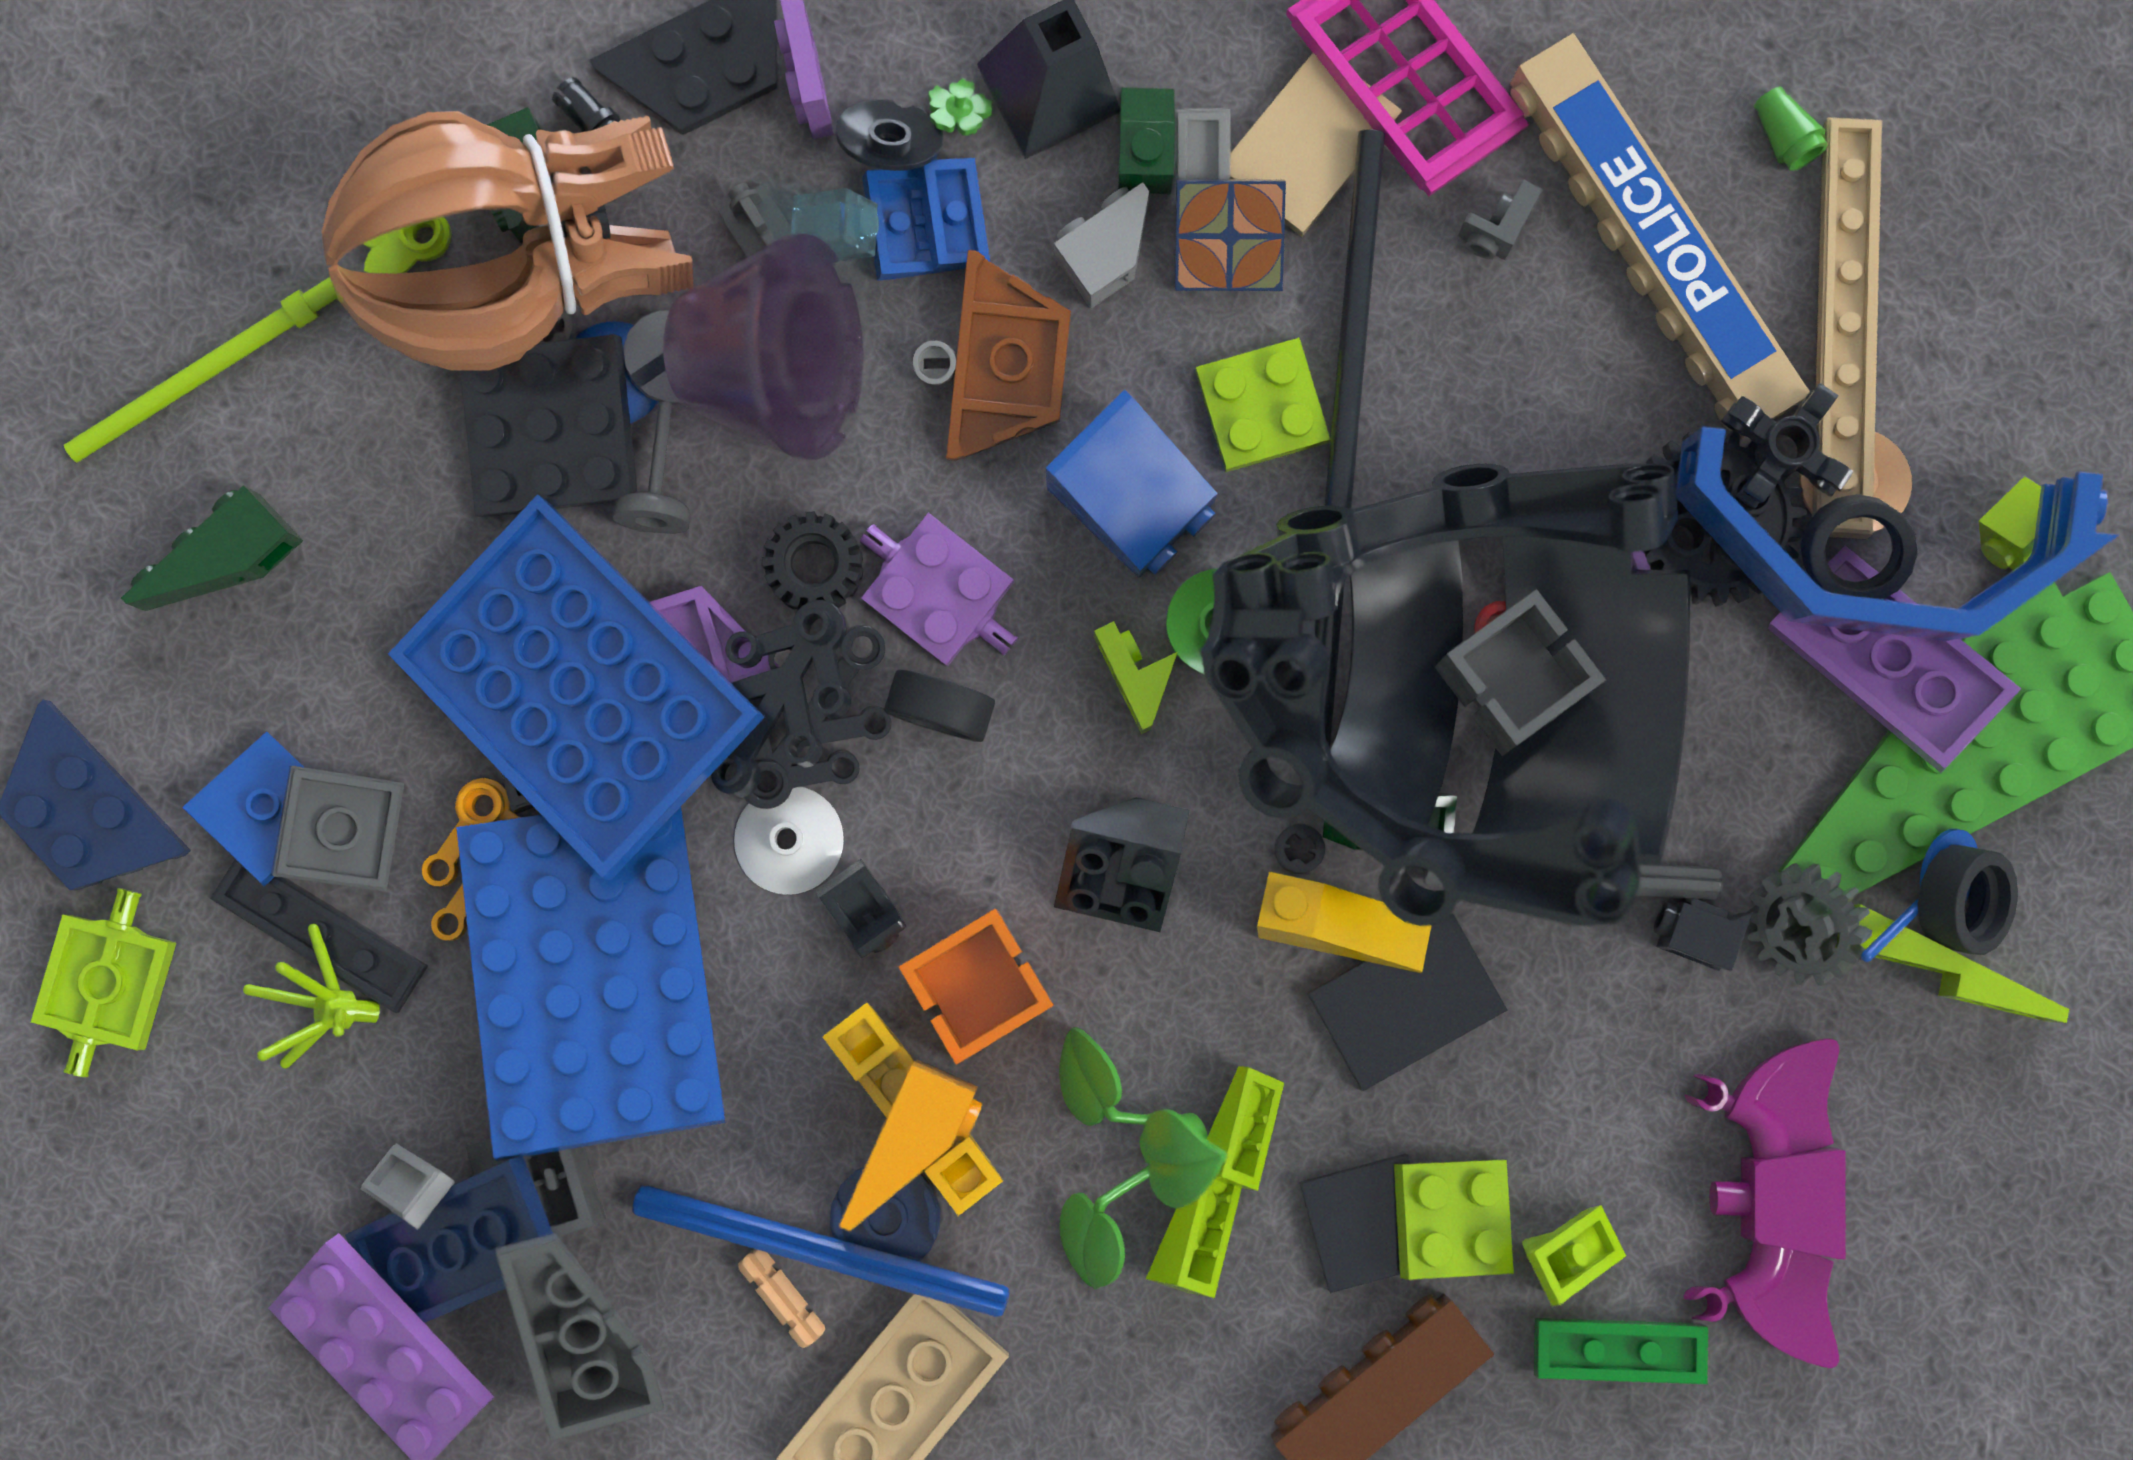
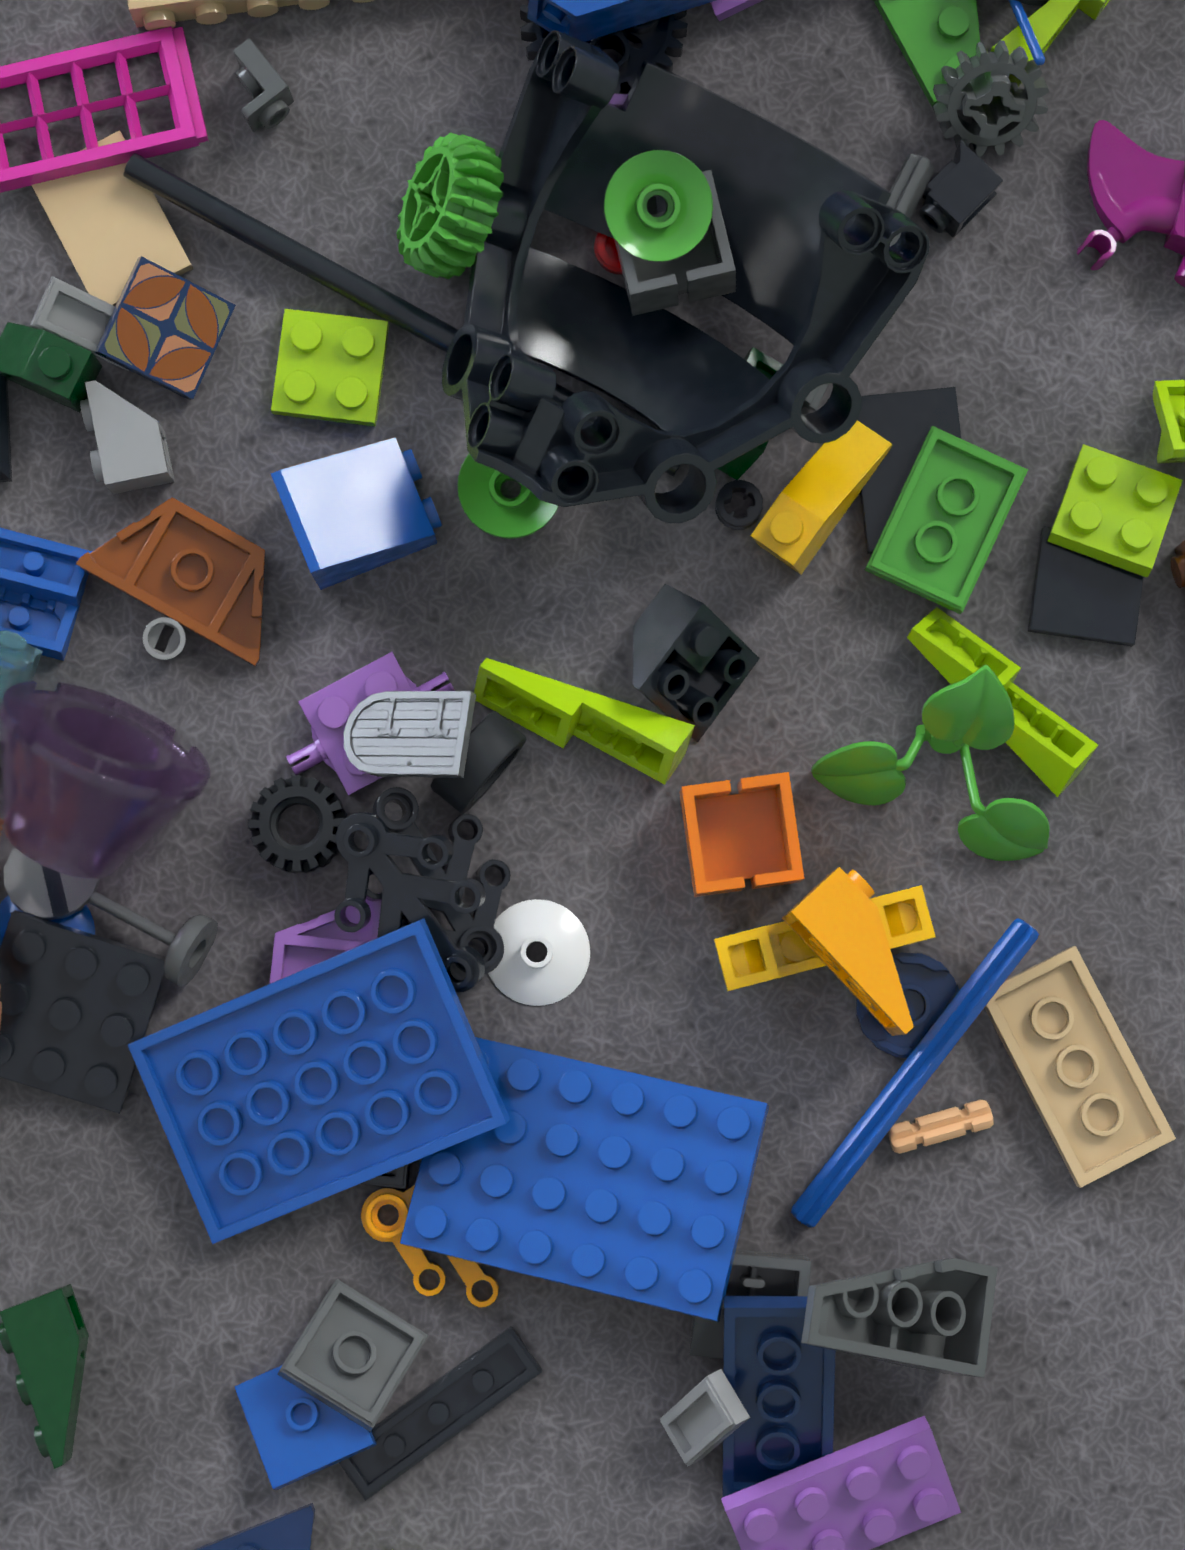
camera: 70 degrees left, 0 degrees up
(331, 1007) = (514, 1427): lime plant -> none
(862, 909) = (629, 909): black bracket -> none
(936, 629) = (411, 733): none -> window
(1024, 762) = (559, 711): none -> lime slope
(1139, 688) = (540, 581): lime slope -> none
(1371, 1056) = (946, 520): none -> bright green tile
(1463, 447) = (450, 206): none -> bright green gear
(1539, 674) = (686, 198): none -> bright green dish

